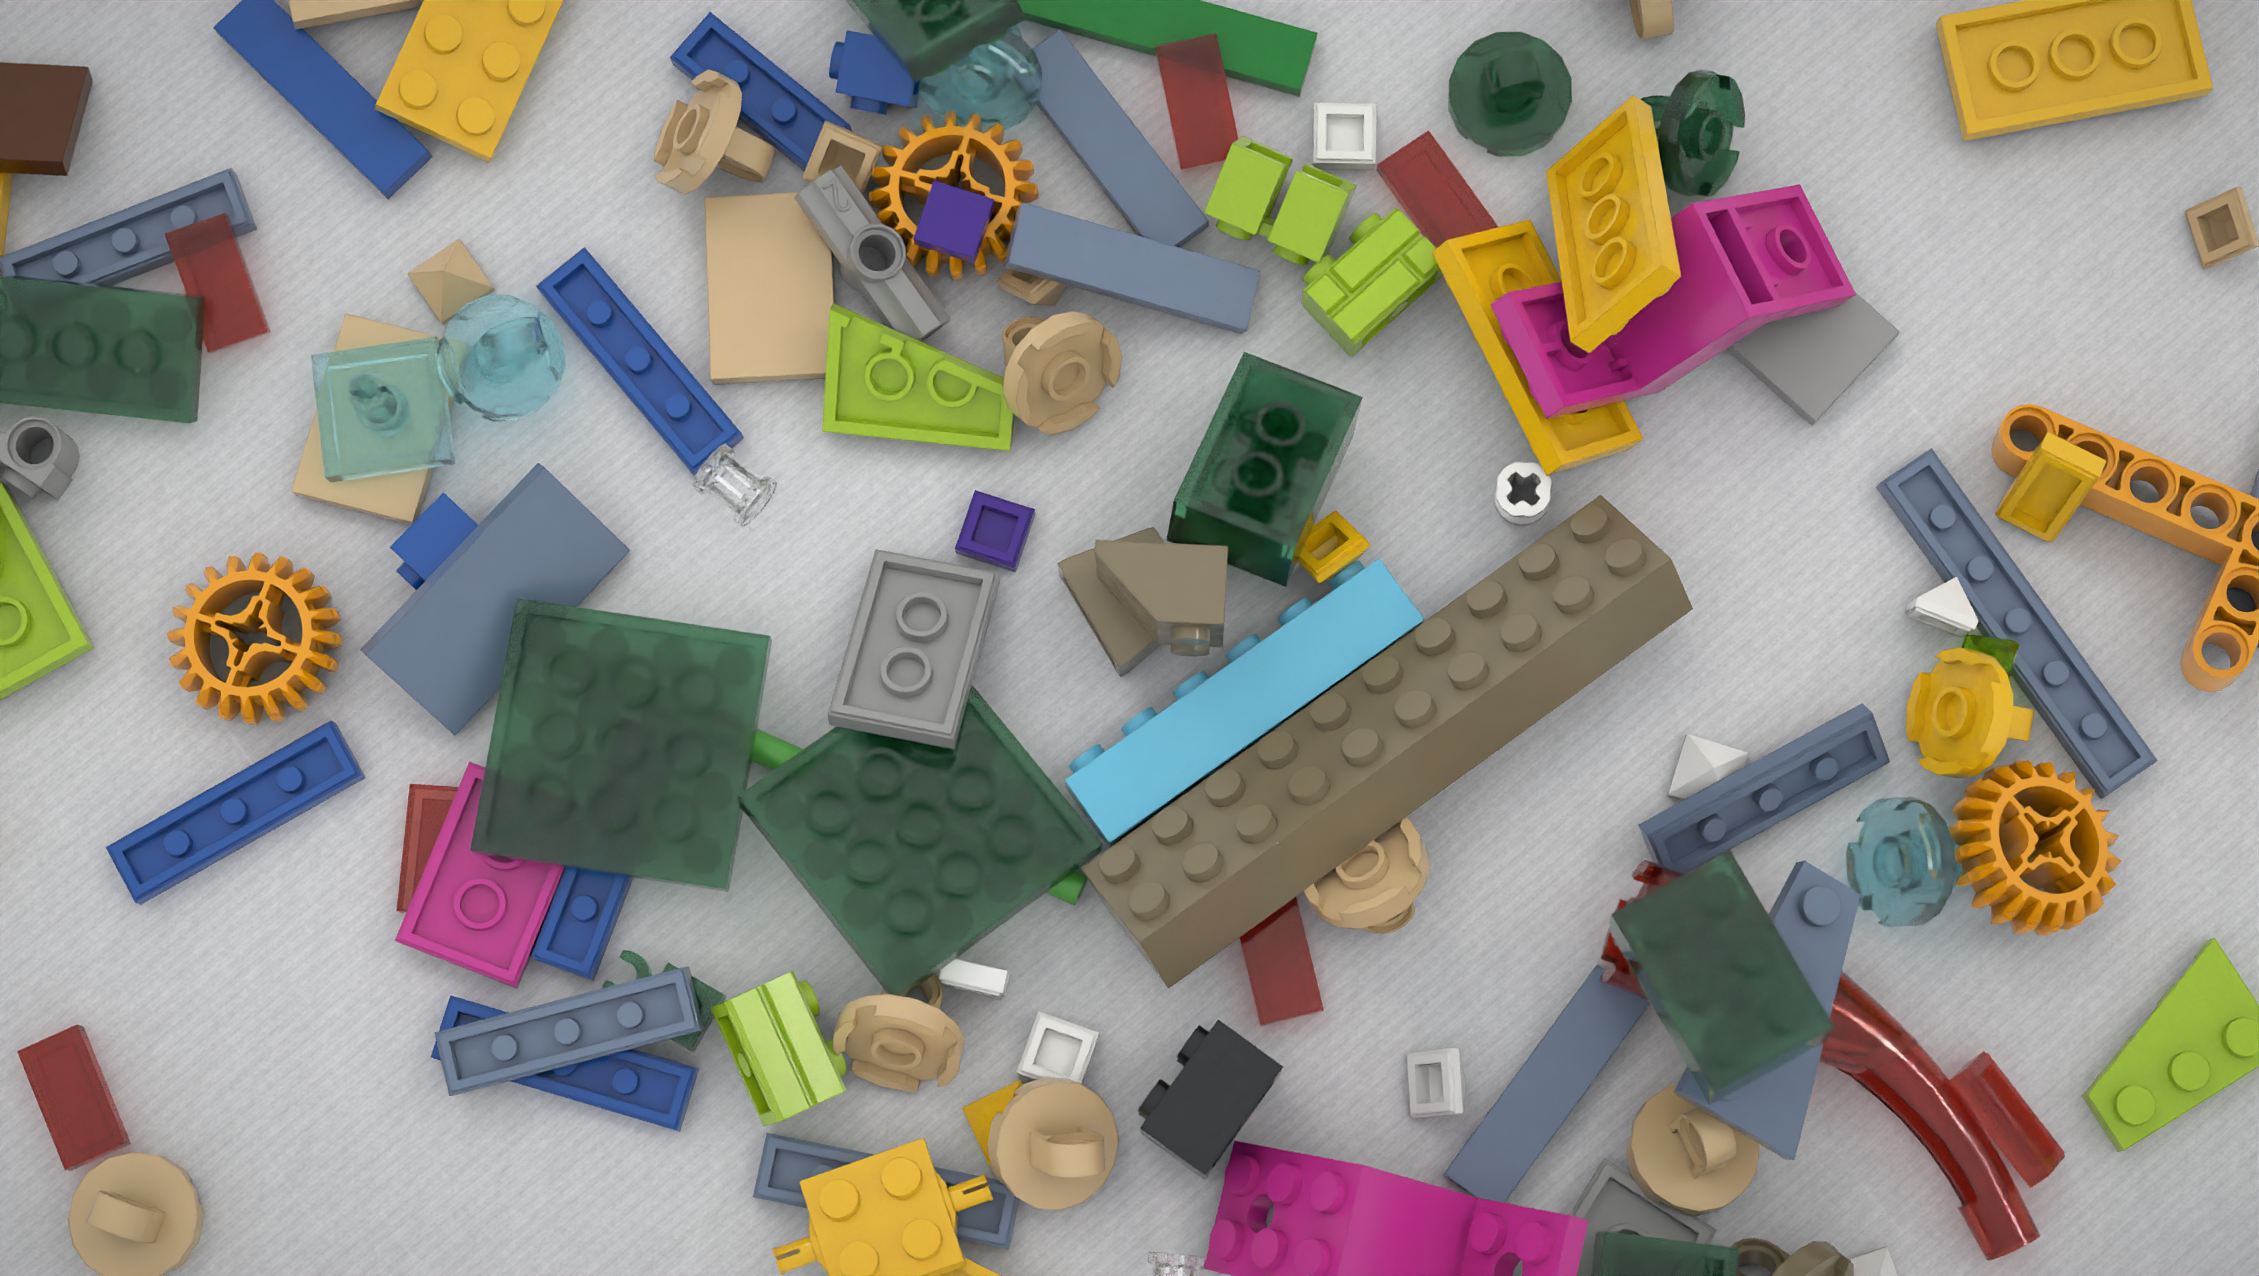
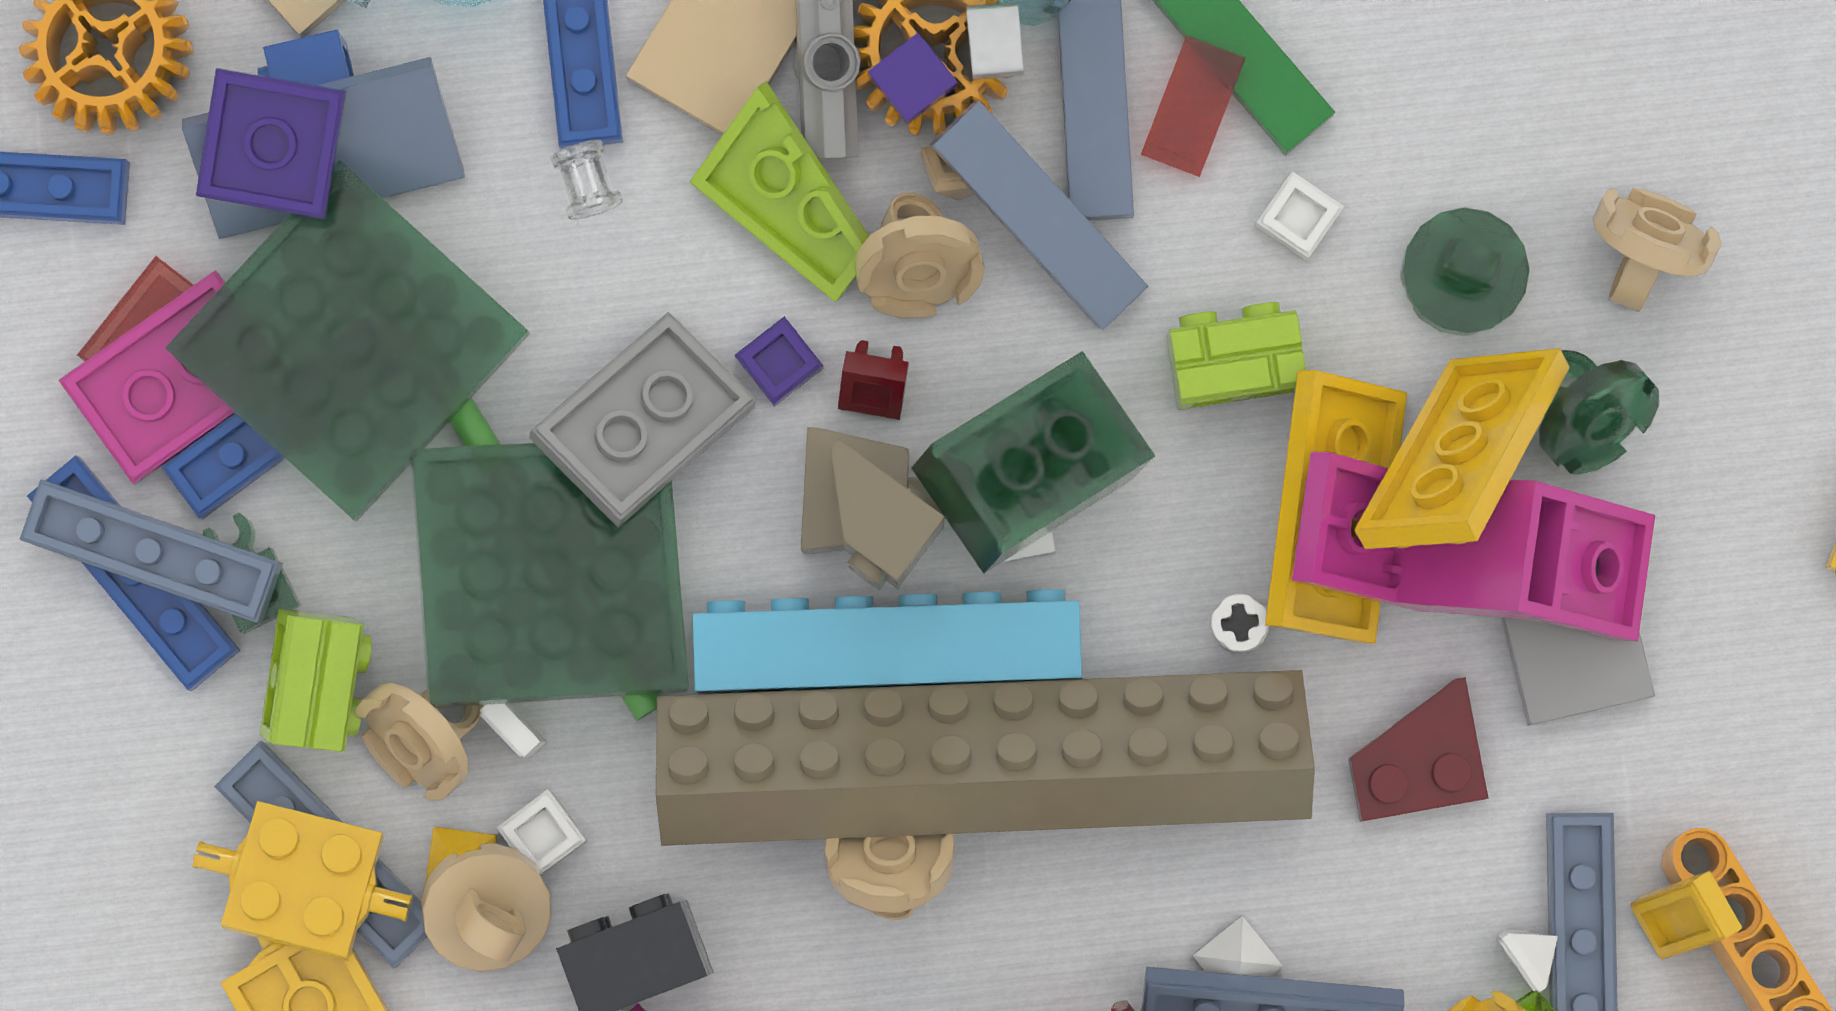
camera: 30 degrees right, 5 degrees up
(449, 618) = (270, 143): none -> dark purple tile
(1001, 148) = (995, 40): none -> flat silver piece
(1086, 495) = (873, 382): none -> dark red tile
(1250, 189) = (1184, 212): lime piece -> none
(1281, 967) = (771, 887): clear red tile -> none
(1331, 547) = (1046, 564): yellow slope -> none
(1433, 191) = (1342, 318): clear red tile -> none
(1746, 509) = (1422, 760): none -> dark red wing

